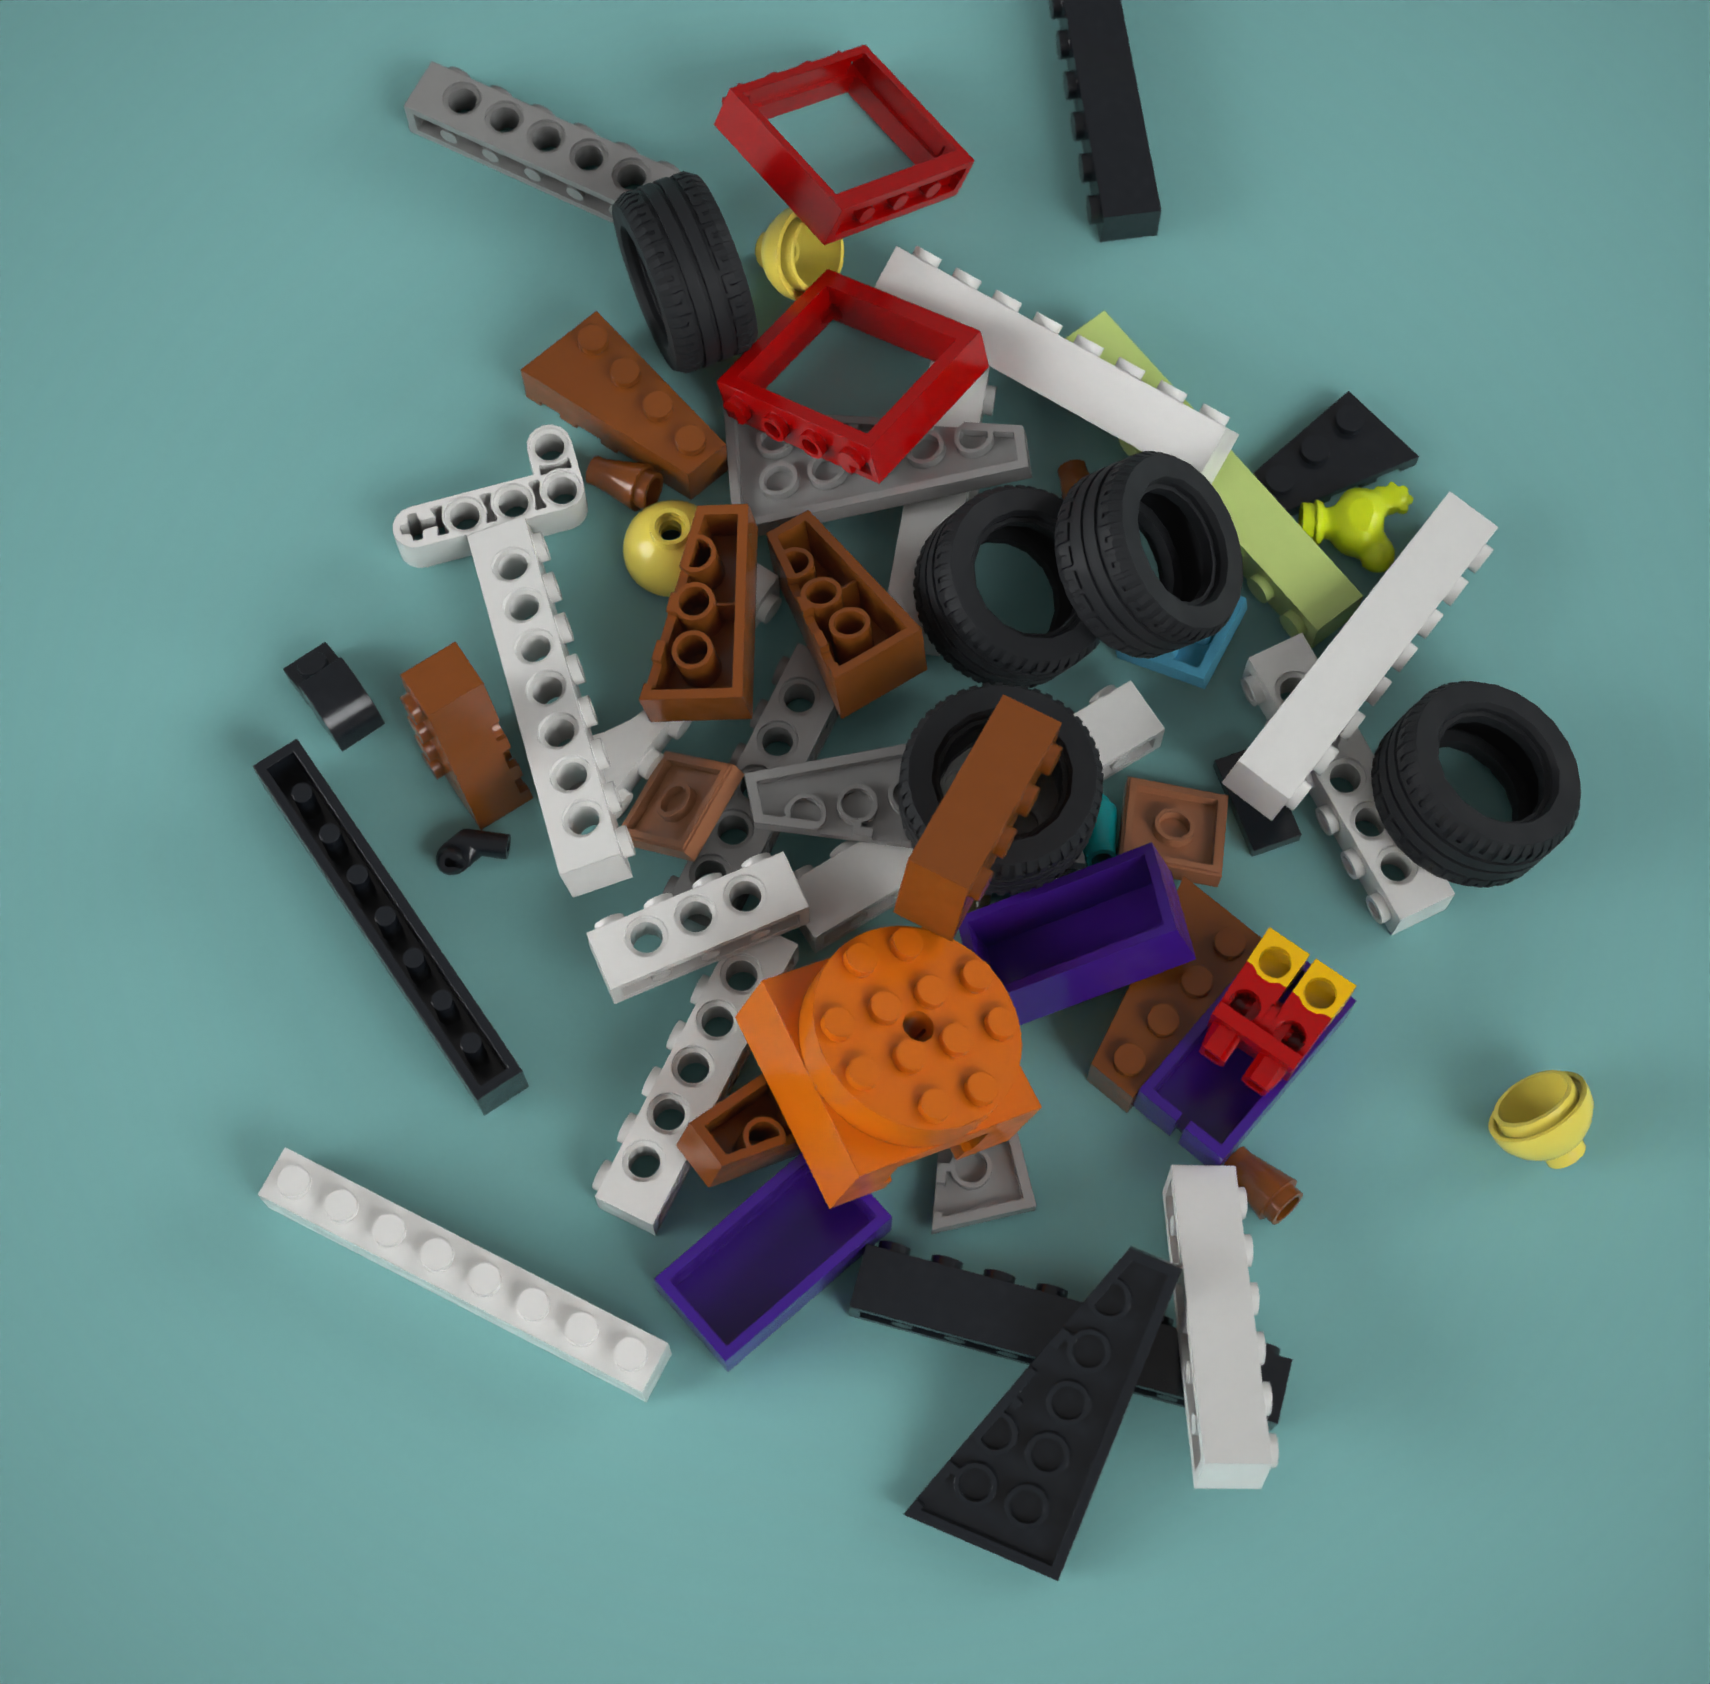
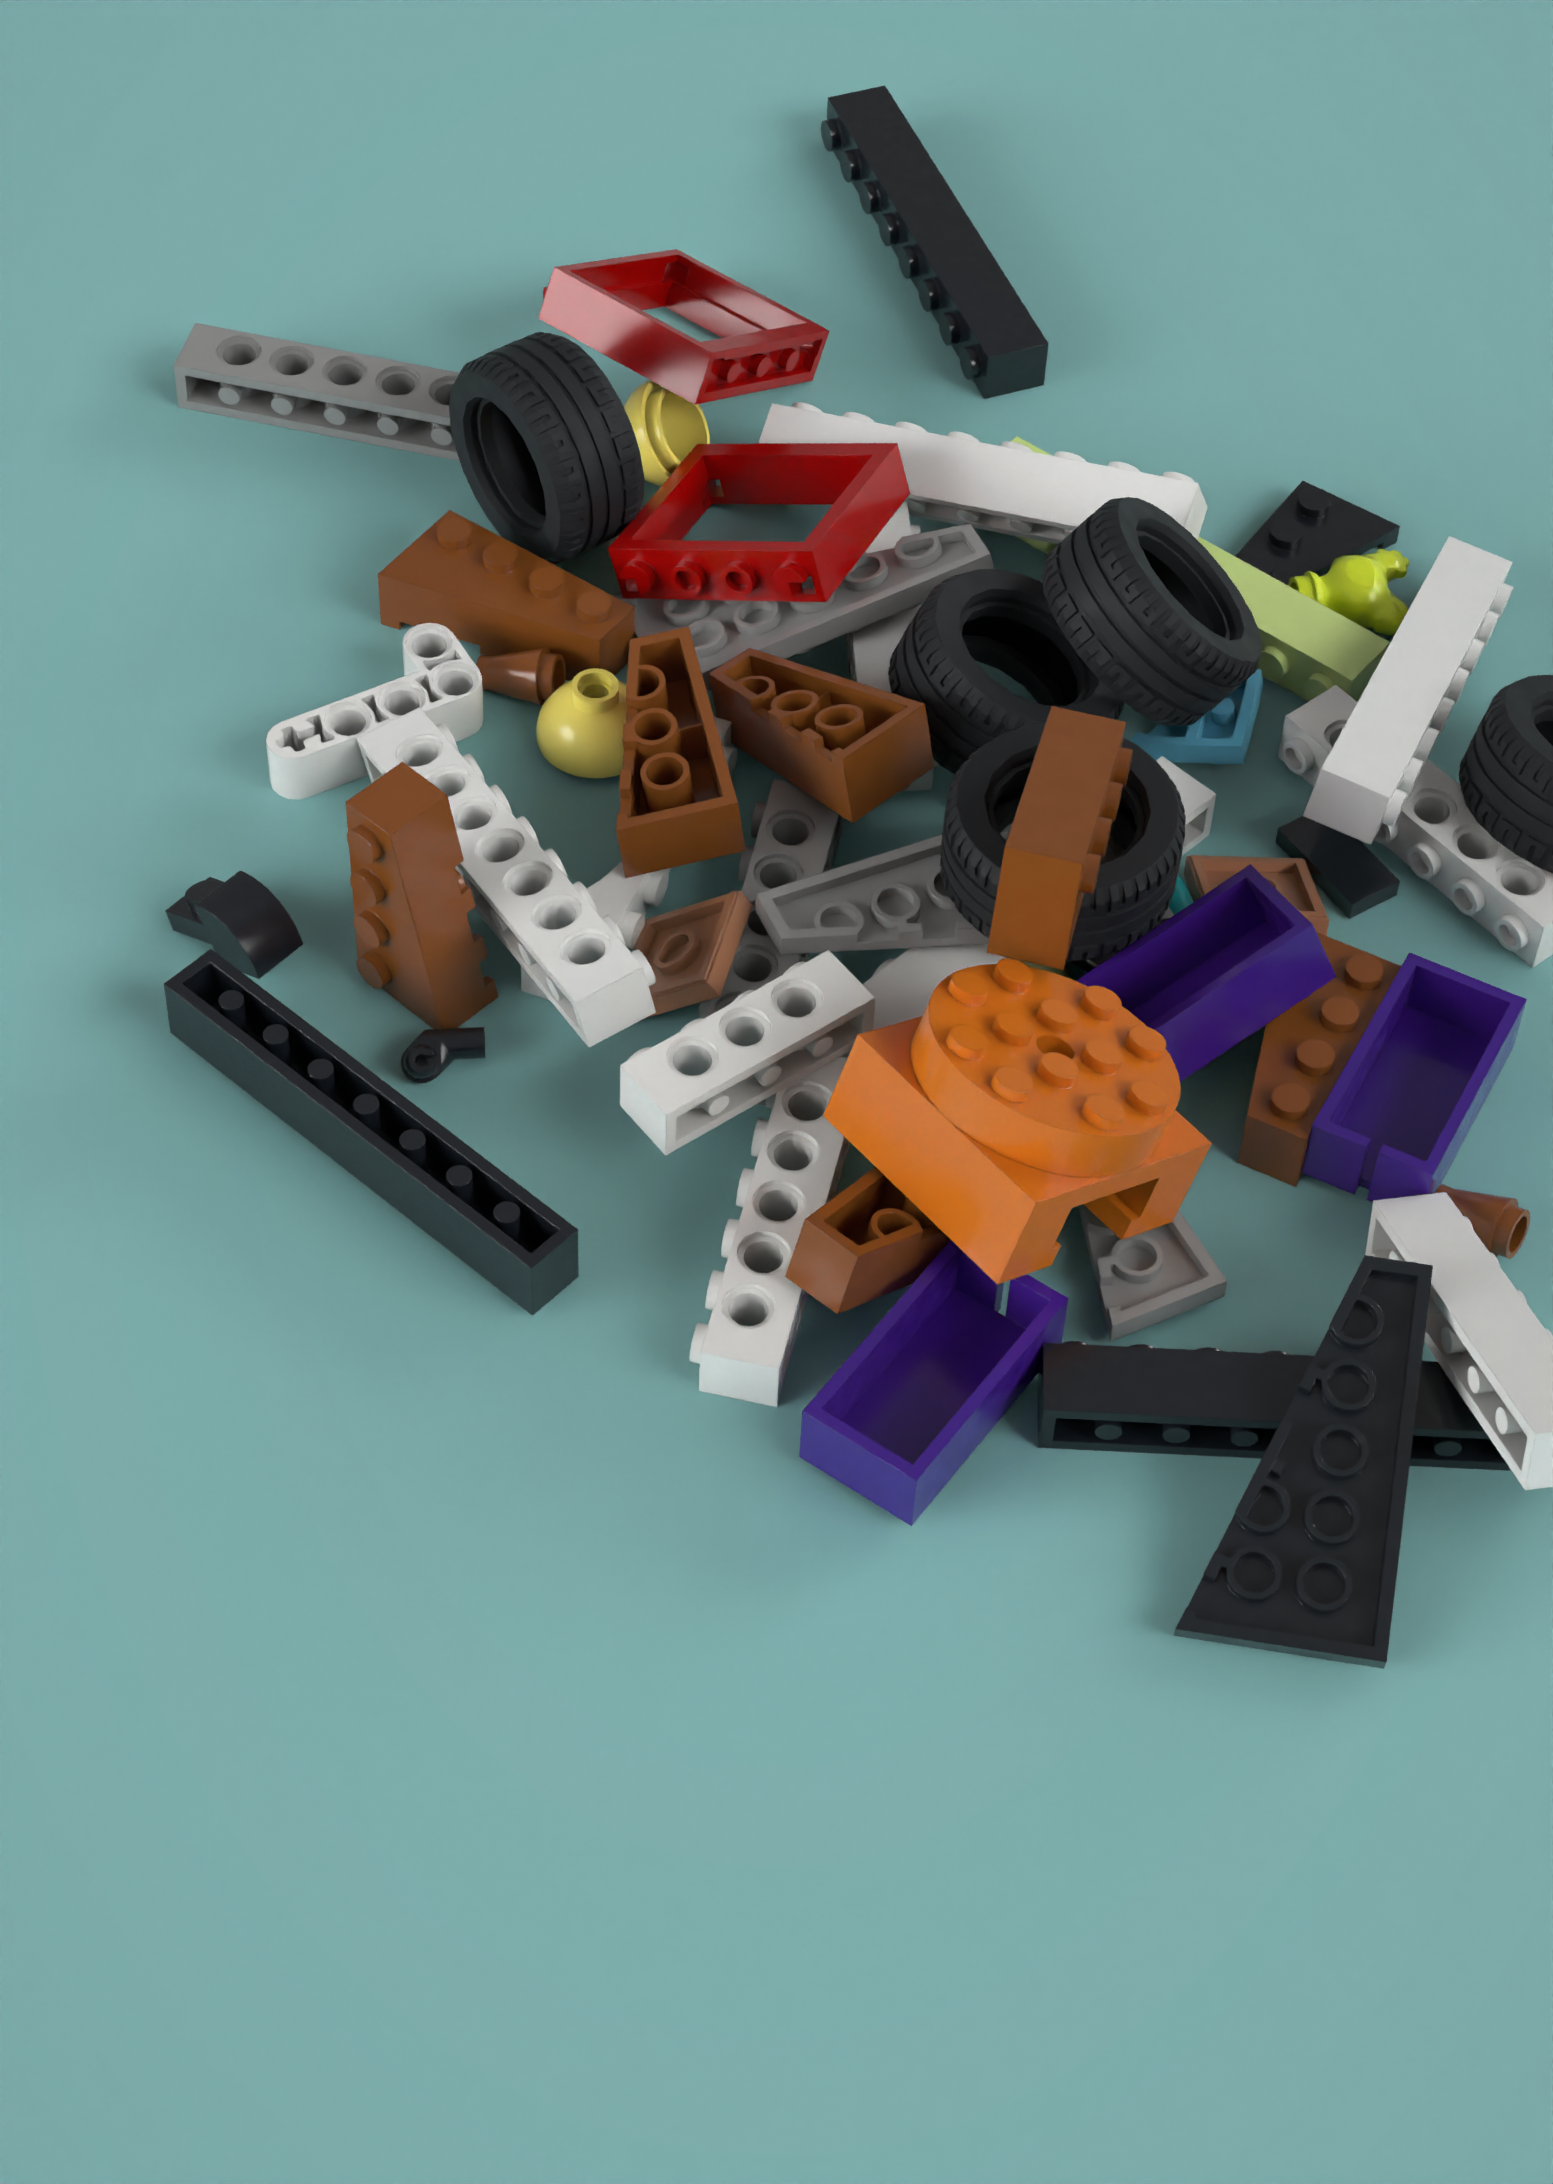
camera: 15 degrees left, 20 degrees down
(466, 1274) = (561, 1472): white brick -> none
(1263, 1026) = (1438, 1031): red hips -> none

